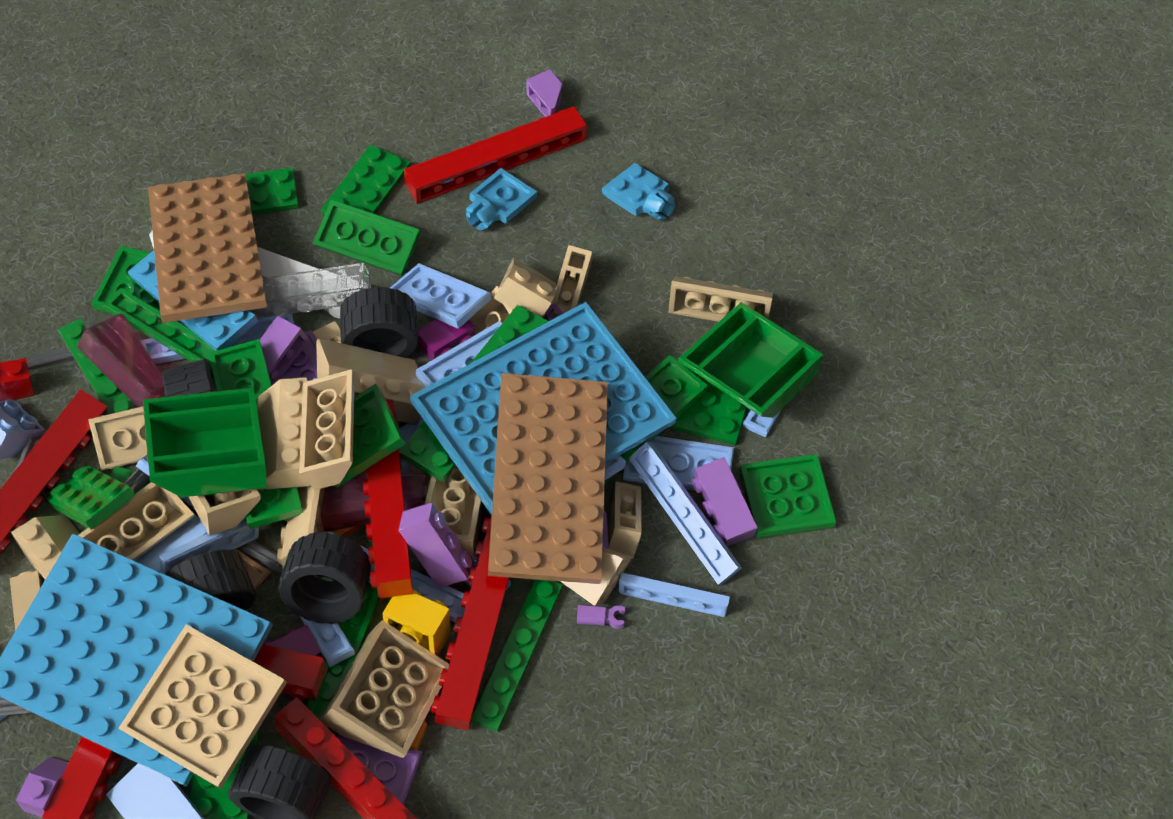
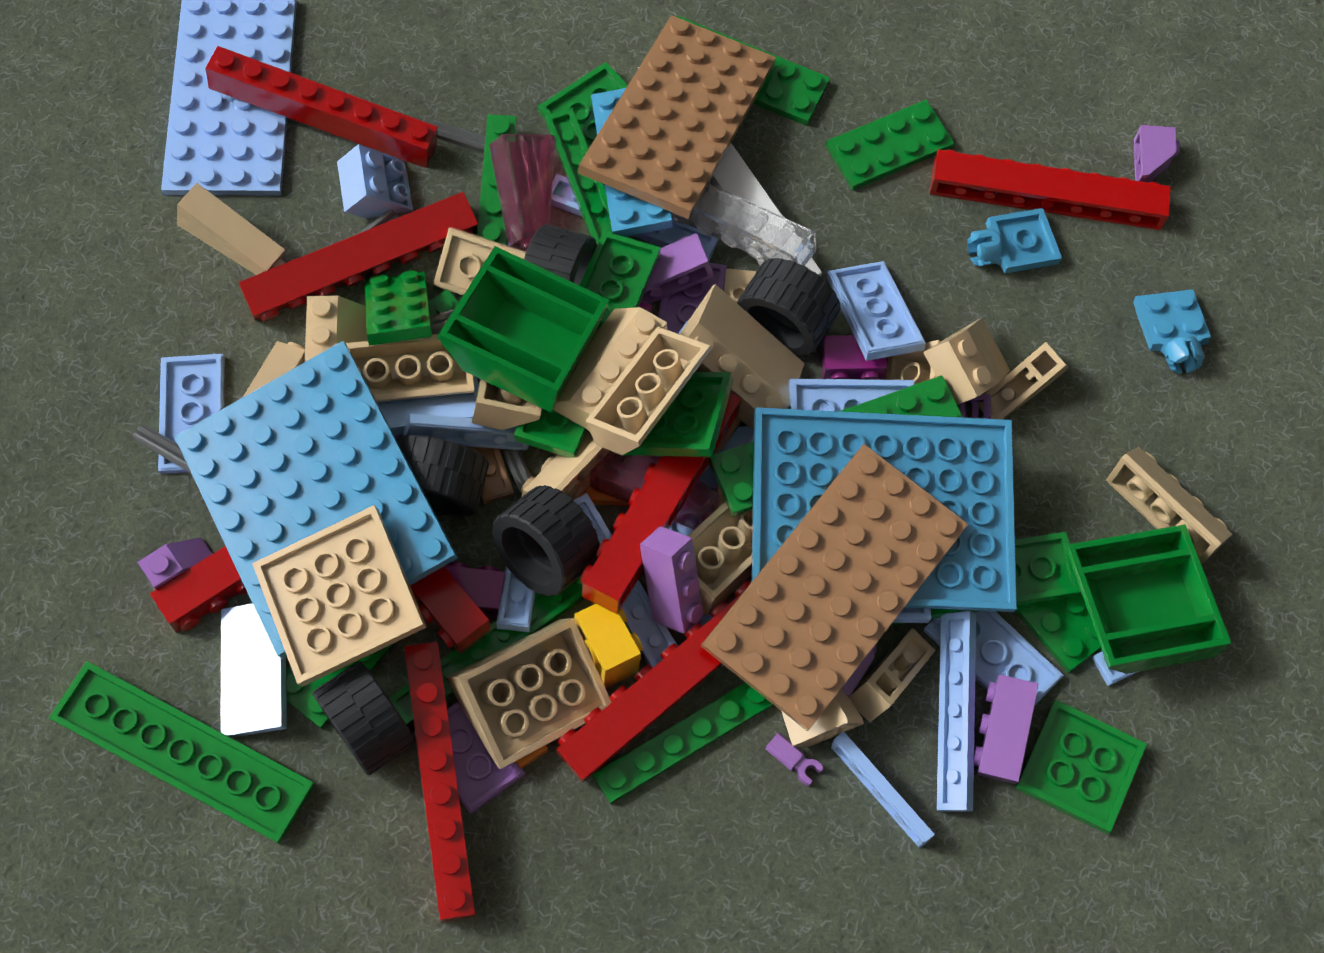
camera: 35 degrees right, 10 degrees up
(367, 238) = (849, 201): green plate -> none

